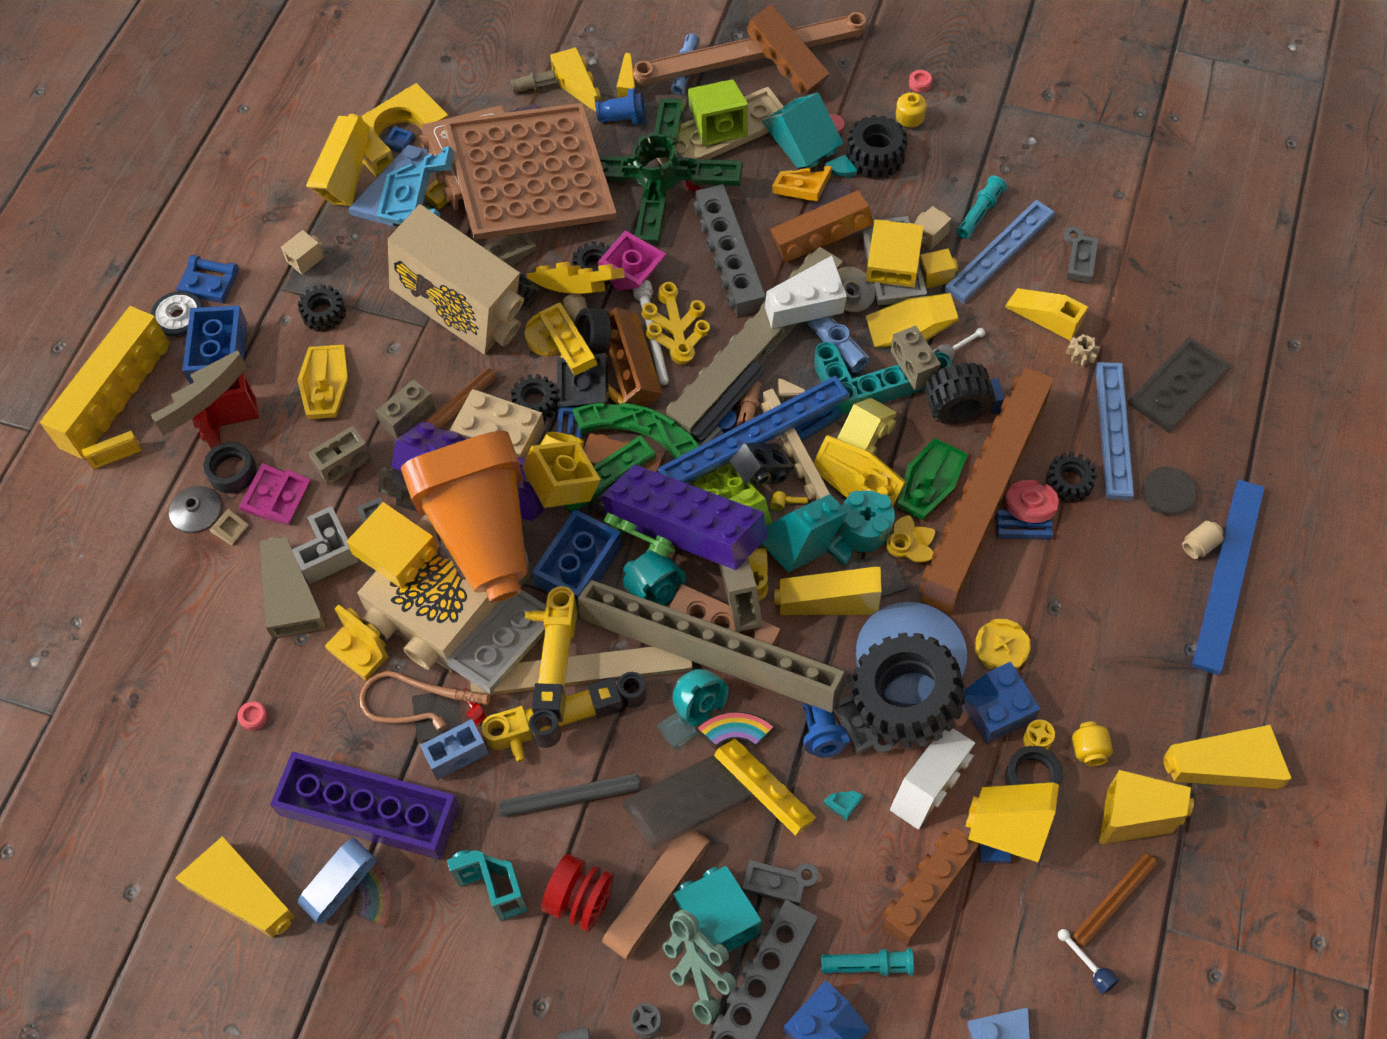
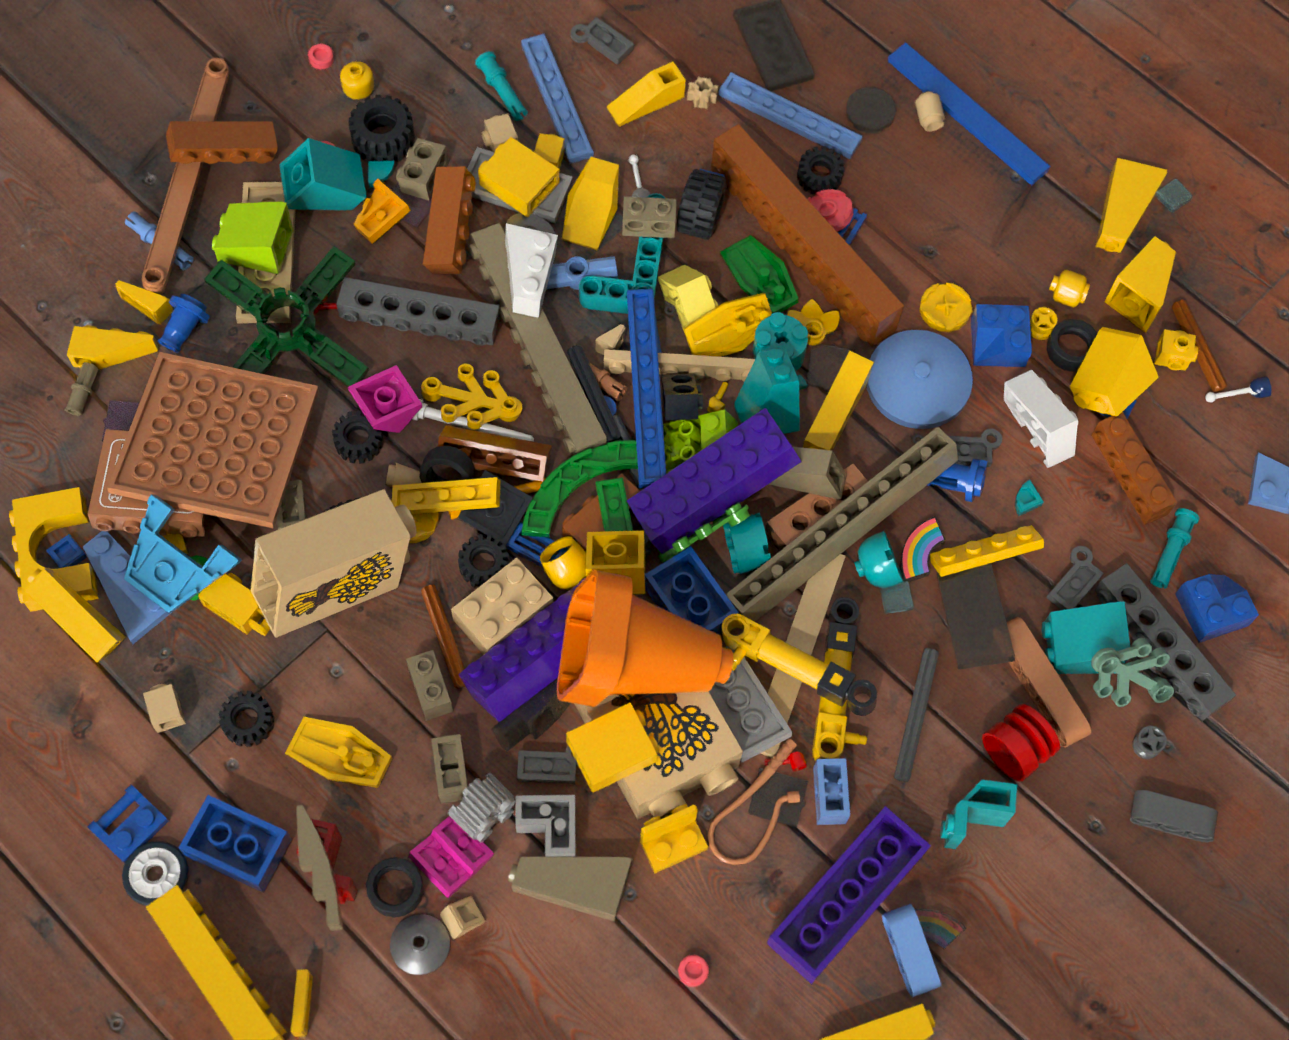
camera: 70 degrees left, 5 degrees up
(315, 489) = (483, 807): none -> light grey brick
(573, 278) = (367, 467): yellow slope -> none
(870, 184) = (419, 169): none -> dark tan brick
(900, 657) = (972, 355): black tyre -> none
(1089, 873) = (1176, 350): none -> yellow brick
(1276, 805) = (1174, 195): none -> clear light blue tile

